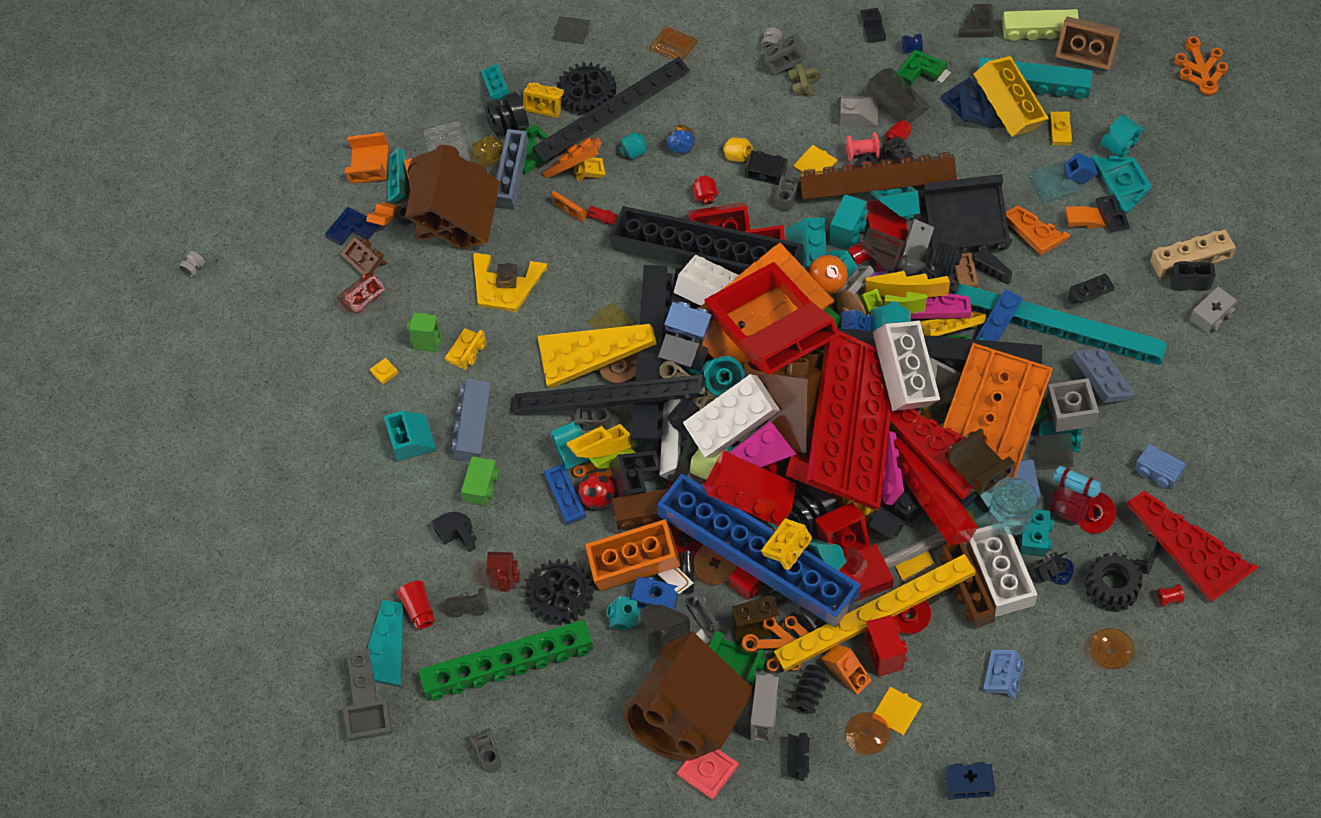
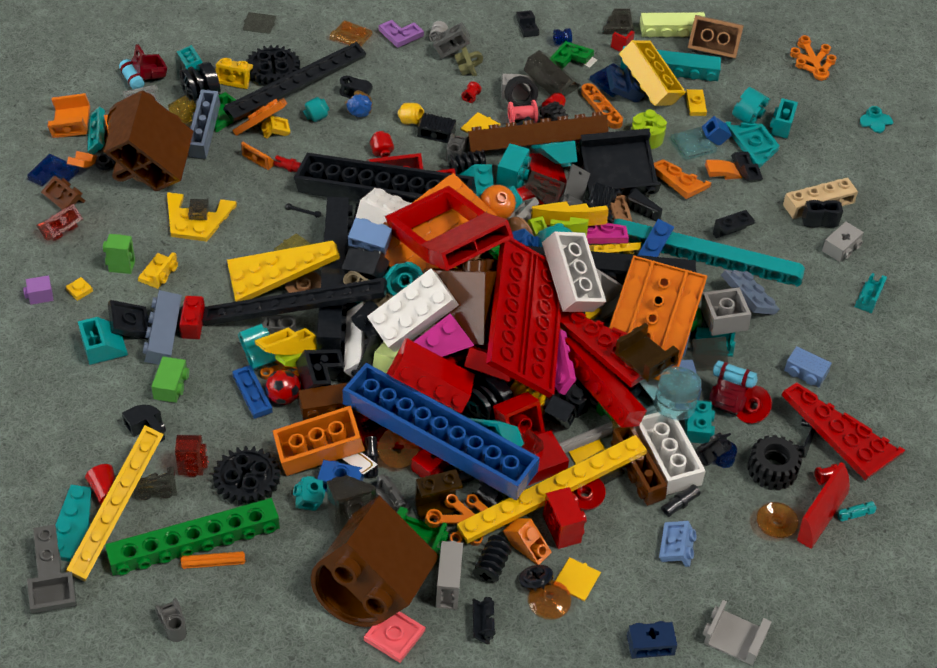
camera: 10 degrees left, 10 degrees down
(342, 374) = (38, 290): none -> medium lavender brick
(427, 624) = (114, 503): none -> yellow plate
(435, 409) = (128, 319): none -> black plate
(444, 96) = (142, 68): none -> dark red piece
(501, 407) = (192, 317): none -> red brick
(524, 685) = (215, 559): none -> orange axle
(634, 277) = (317, 214): none -> black hinge
(676, 116) = (354, 85): none -> black piece
(727, 45) = (398, 35): none -> medium lavender plate
(787, 543) = (469, 420): yellow bracket -> none
(799, 212) = (465, 161): none -> black piece
(806, 119) = (473, 89): none -> red bush
(854, 111) = (513, 83): none -> black tyre
(859, 703) = (543, 574): none -> black gear
(949, 136) = (595, 94): none -> orange beam
(980, 49) = (619, 40): none -> red panel
(1004, 161) = (655, 122): none -> lime brick
(1010, 624) = (681, 500): none -> black pin
(1057, 776) = (735, 635): none -> light grey panel
(1159, 151) = (783, 118): none -> teal brick
(1163, 635) = (824, 506): none -> red slope
(1198, 638) = (856, 511): none -> teal axle
(1238, 375) = (870, 293): none -> teal hinge
(1268, 150) = (875, 119): none -> teal plate

